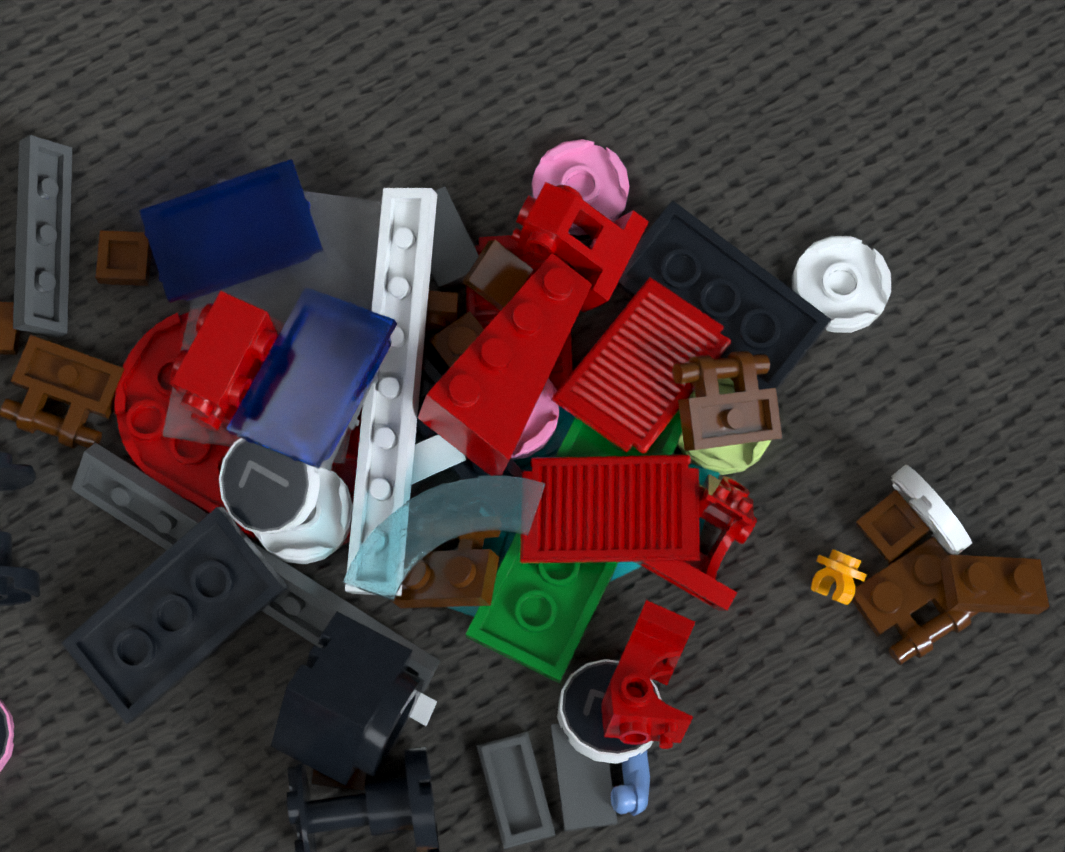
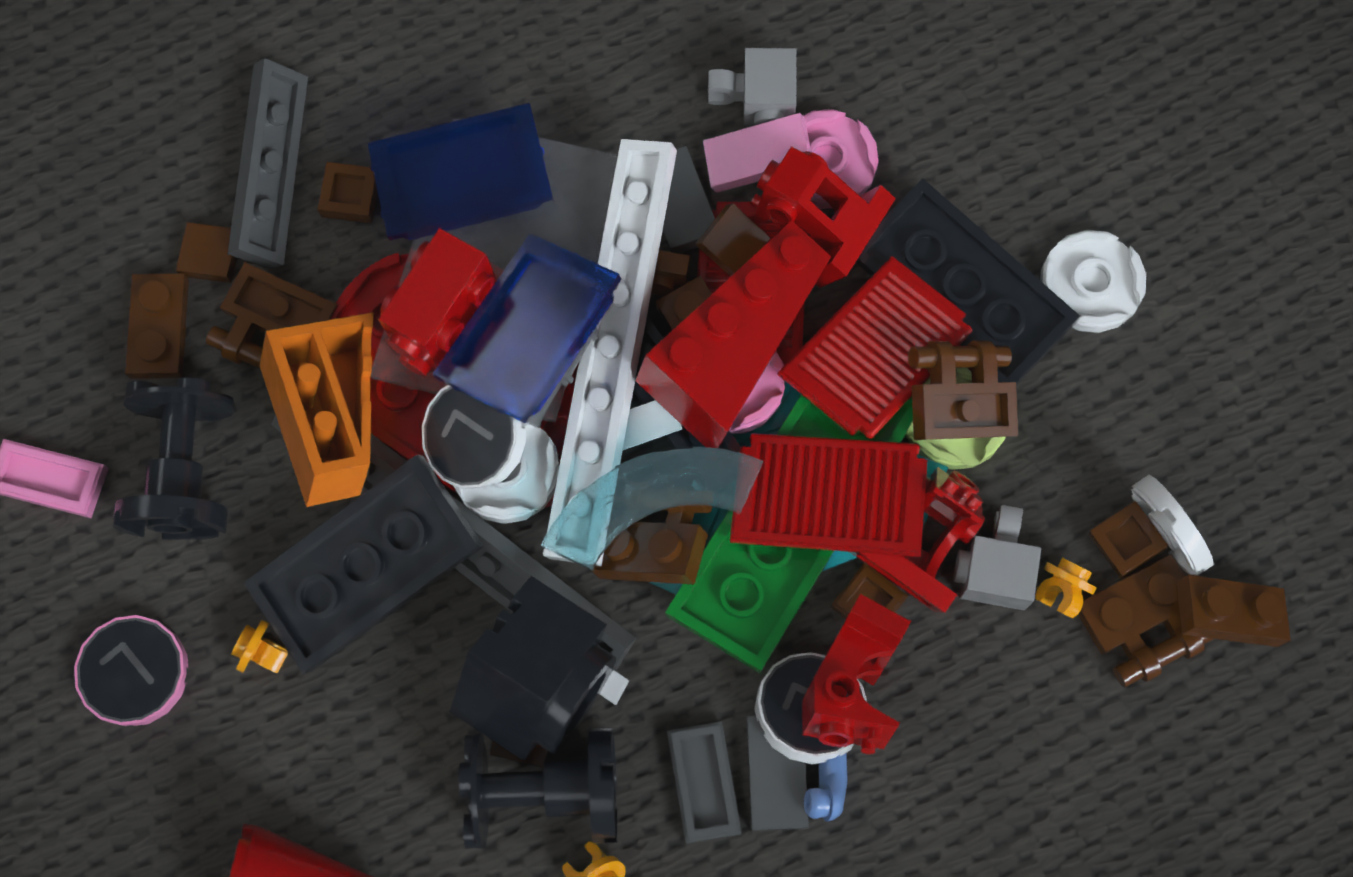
camera: 10 degrees right, 0 degrees up
(77, 702) = (258, 649): none -> light orange plate
(123, 465) = (323, 402): none -> orange wedge
(503, 189) = (744, 154): none -> bright pink tile
(515, 124) = (764, 87): none -> light grey brick
(656, 591) = (871, 585): none -> reddish brown tile
(774, 564) = (998, 567): none -> light grey brick

